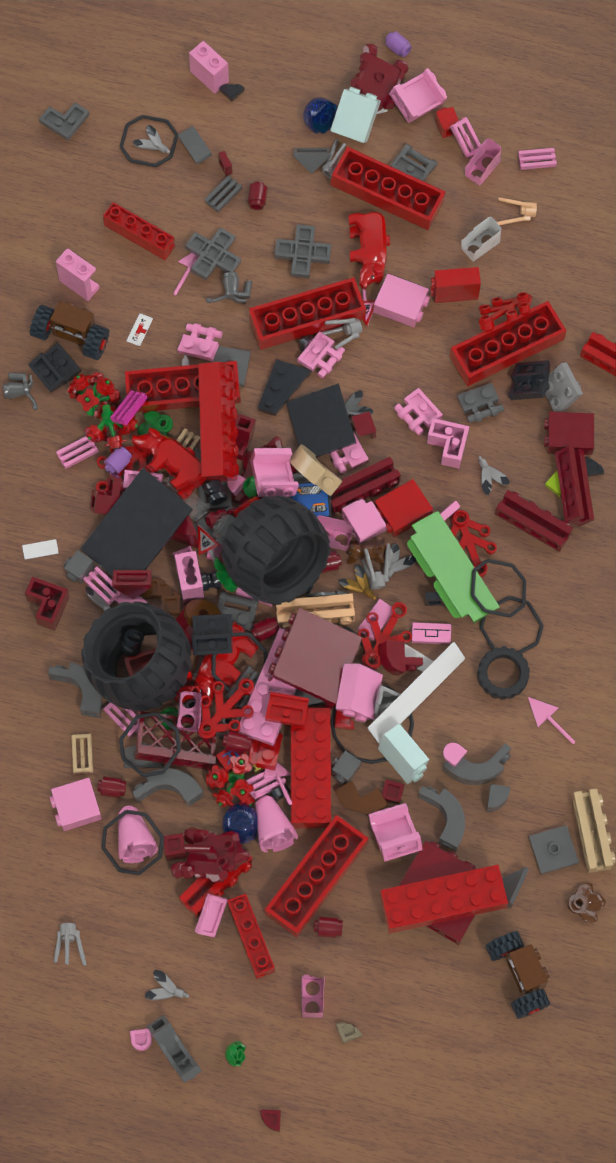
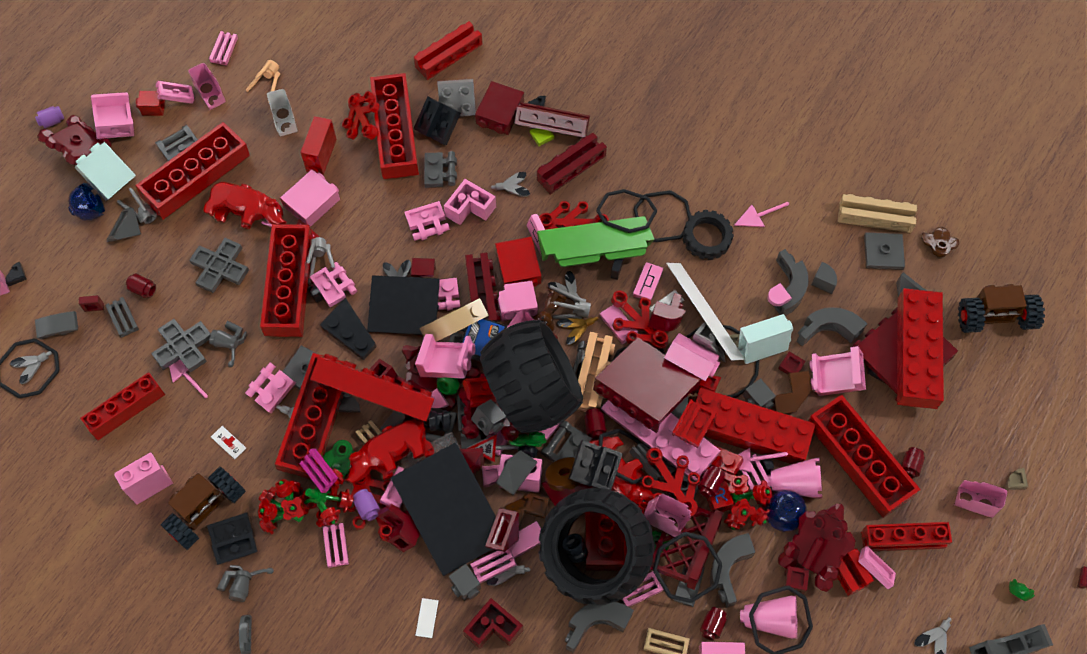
camera: 70 degrees left, 5 degrees down
(182, 567) = (516, 472): none -> dark grey slope

